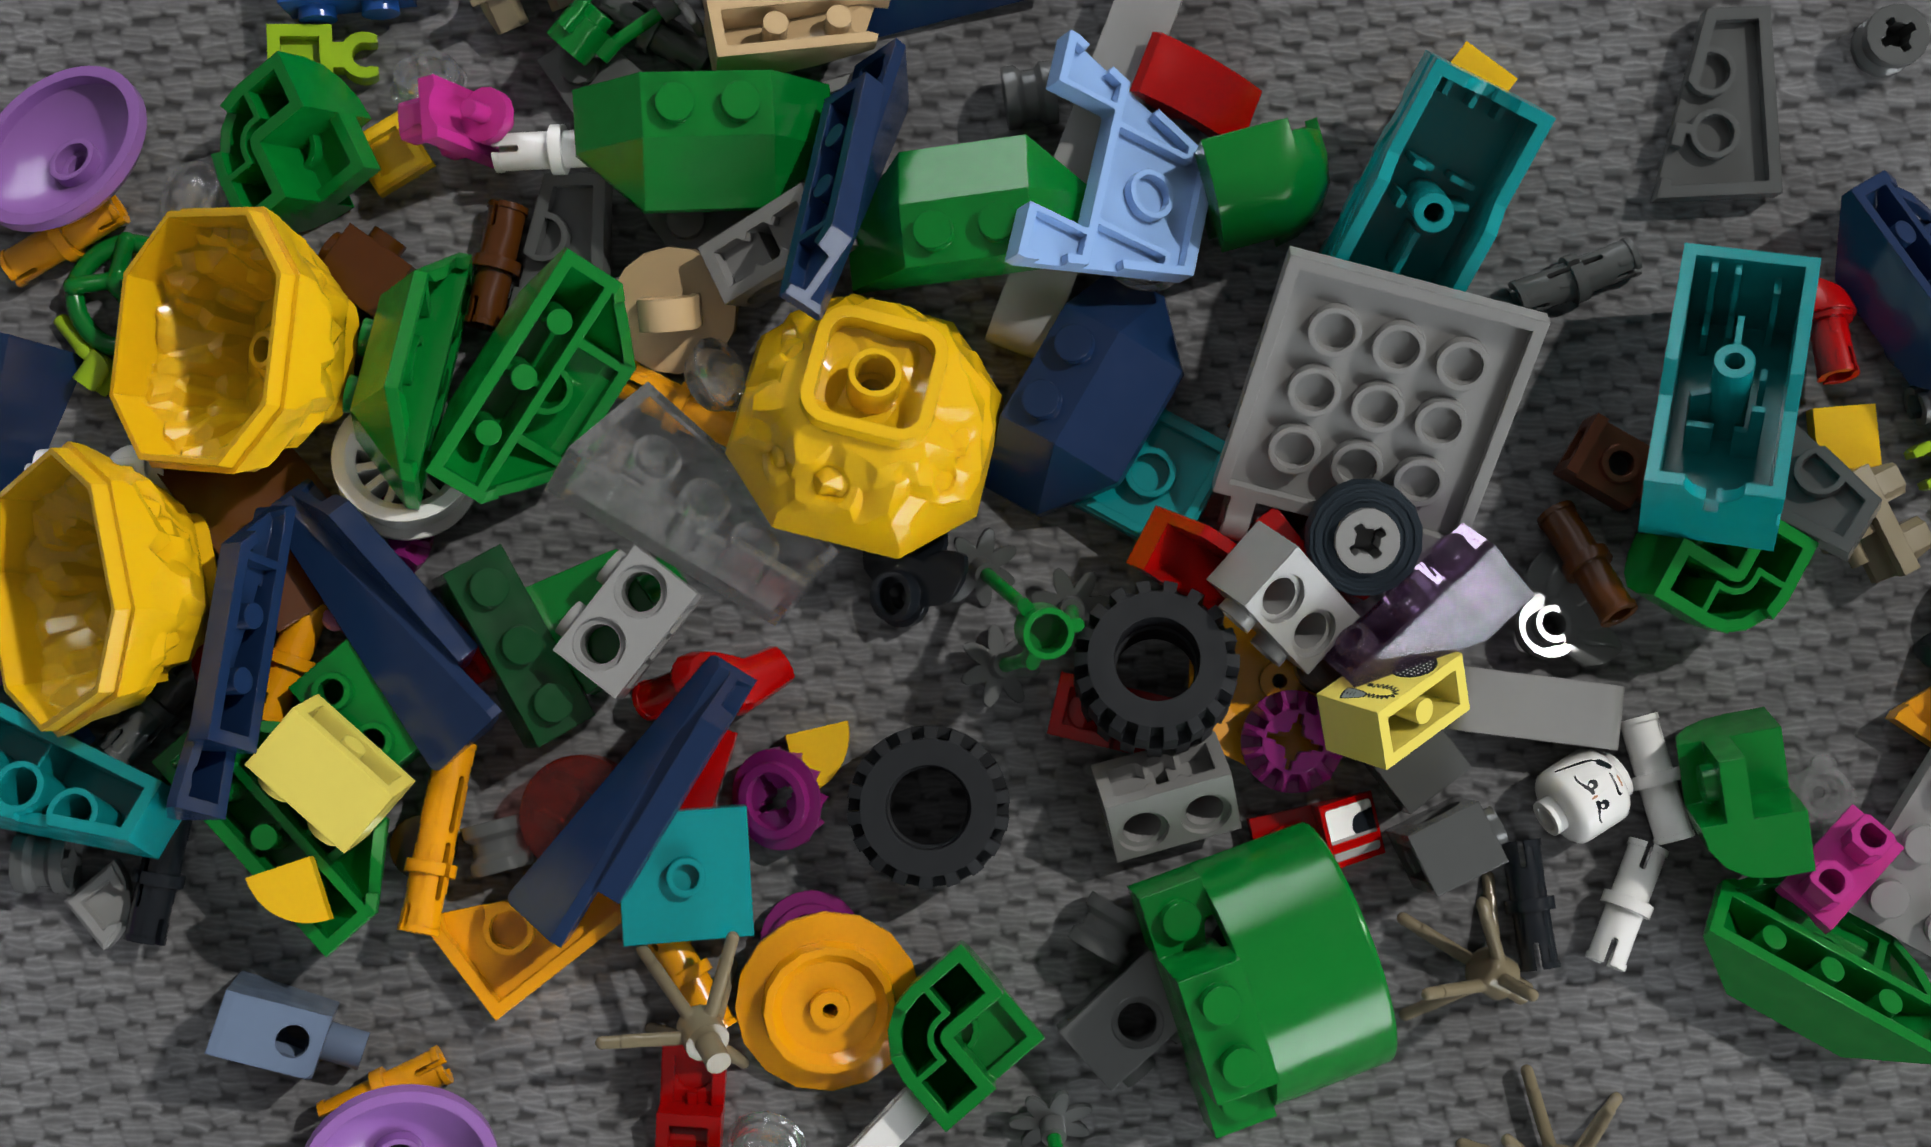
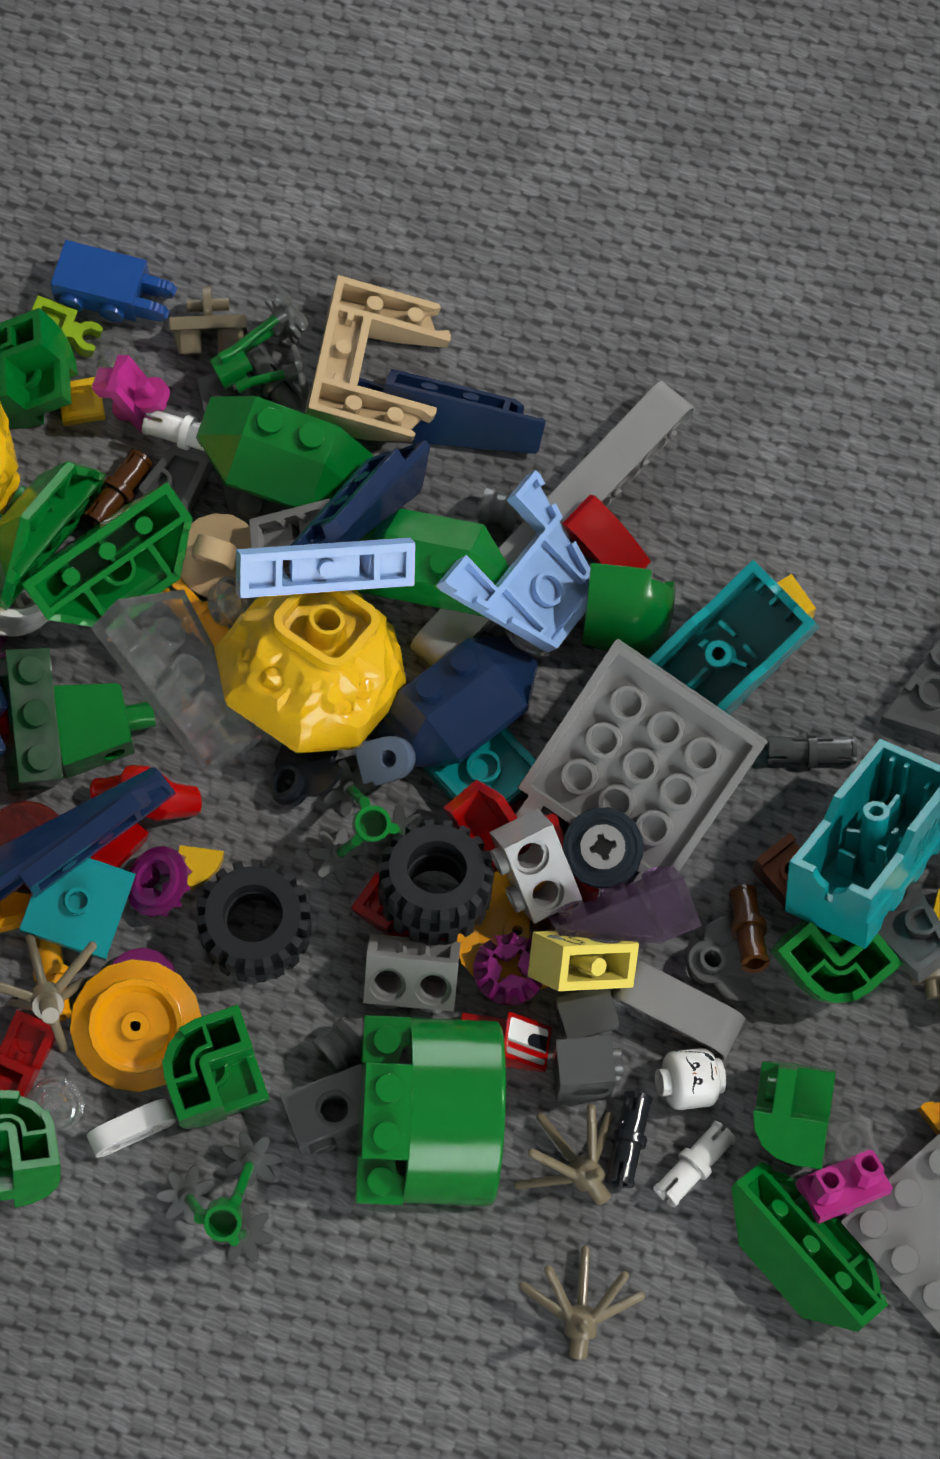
camera: 20 degrees right, 15 degrees down
(365, 264) = (36, 455): reddish brown brick -> none
(640, 633) = (115, 734): light grey brick -> none
(843, 299) = (325, 567): none -> light blue hinge
(1019, 520) = (385, 760): none -> sand blue piece
(1656, 779) = (744, 1087): white pin -> none

